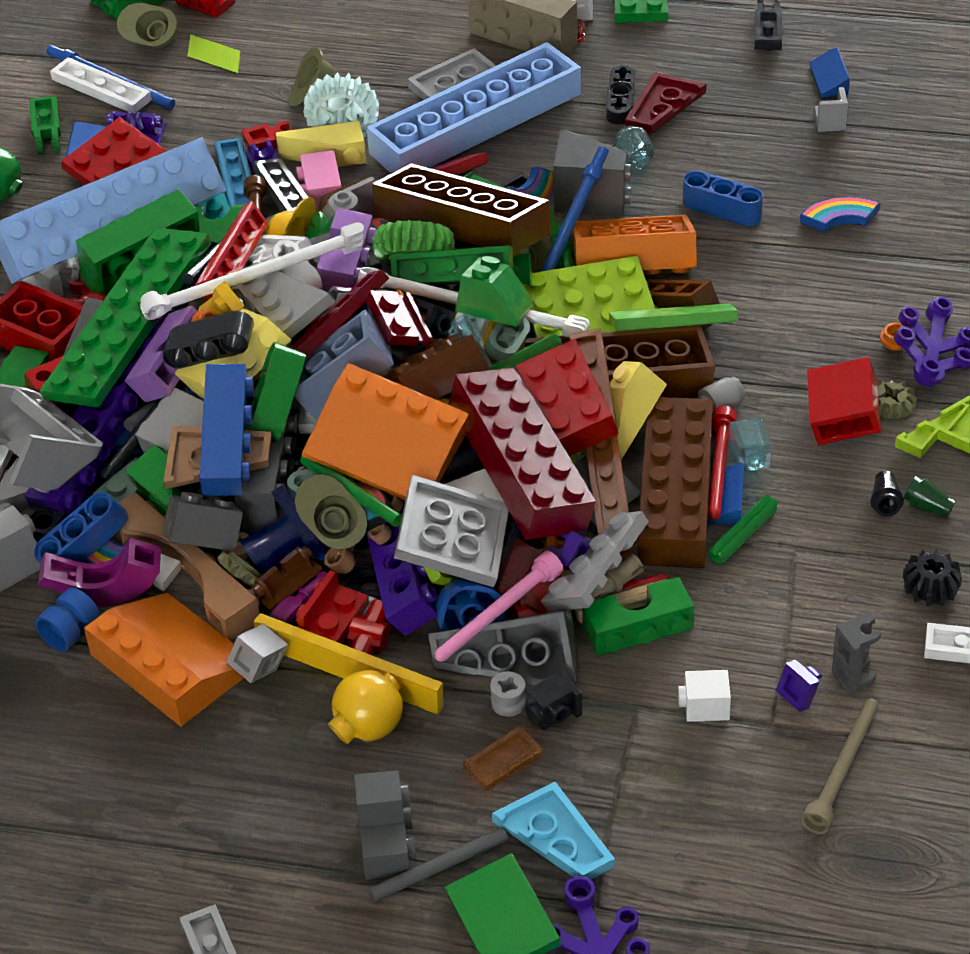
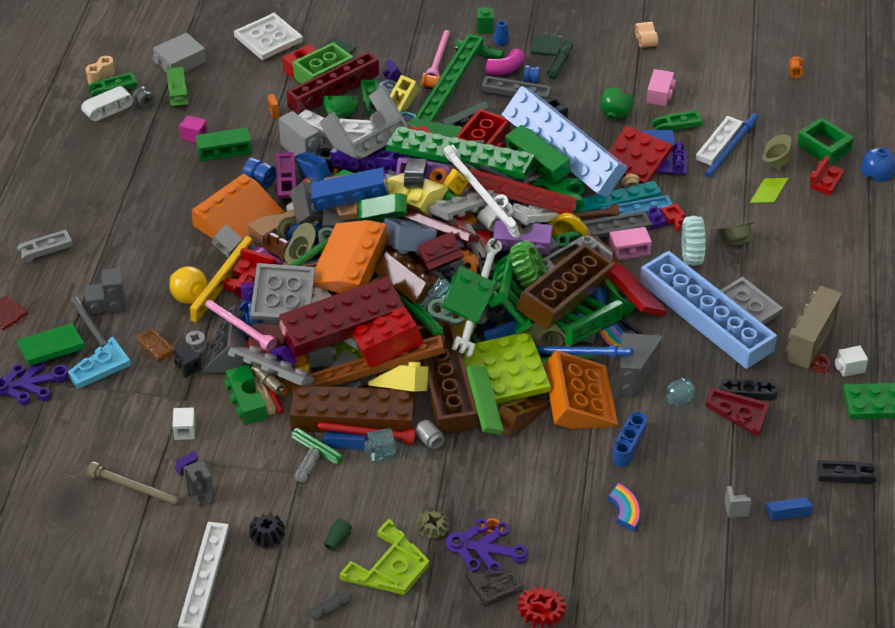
camera: 85 degrees right, 0 degrees up
(343, 138) = (668, 240): light yellow slope -> none
(785, 540) = (307, 465): none -> light grey axle
(843, 401) = (420, 491): red brick -> none
(886, 494) = (344, 512): black cone -> none

